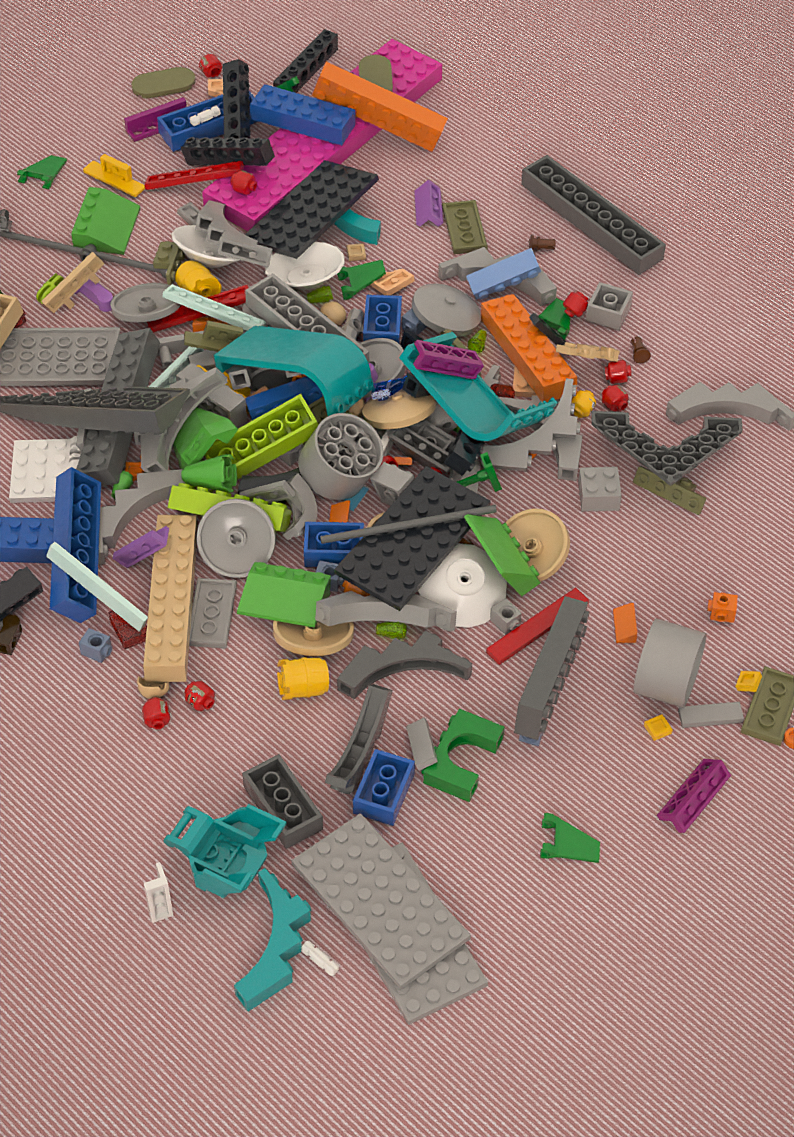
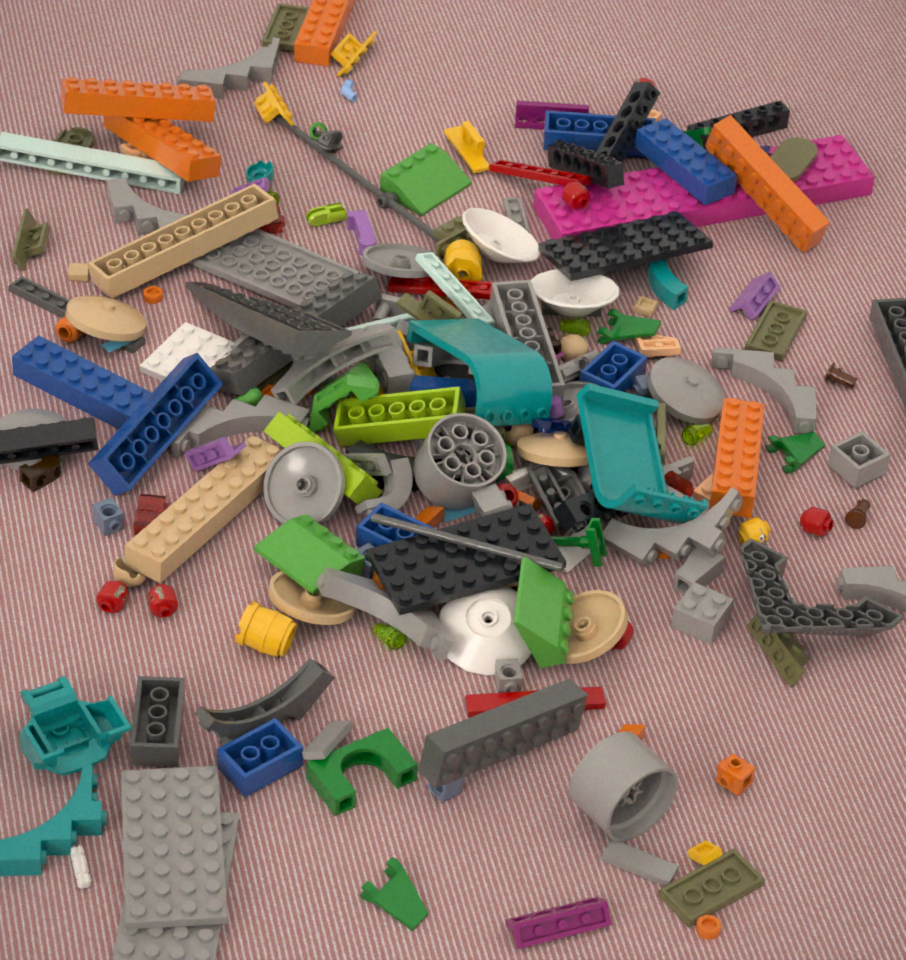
camera: 30 degrees right, 10 degrees down
(44, 169) = (407, 116): green flag -> none
(77, 278) = (333, 216): tan hinge -> none
(97, 586) = (138, 460): light aqua tile -> none
(163, 82) = (586, 88): olive tile -> none
(205, 116) = (590, 126): white axle -> none
(212, 473) = (329, 422): bright green cone -> none
(212, 612) = (234, 543): light grey tile -> none
(230, 241) = (516, 235): light grey arch -> none
(399, 656) = (373, 660): dark grey arch -> none
(447, 361) = (626, 422): magenta fence -> none
(503, 274) = (769, 382): medium blue brick -> none
(547, 330) = (769, 454): black tile -> none
(575, 304) = (821, 441): red head -> none
(589, 351) = (786, 481): tan hinge -> none
(615, 398) = (793, 543): red head -> none
(658, 727) = (576, 847): yellow tile -> none

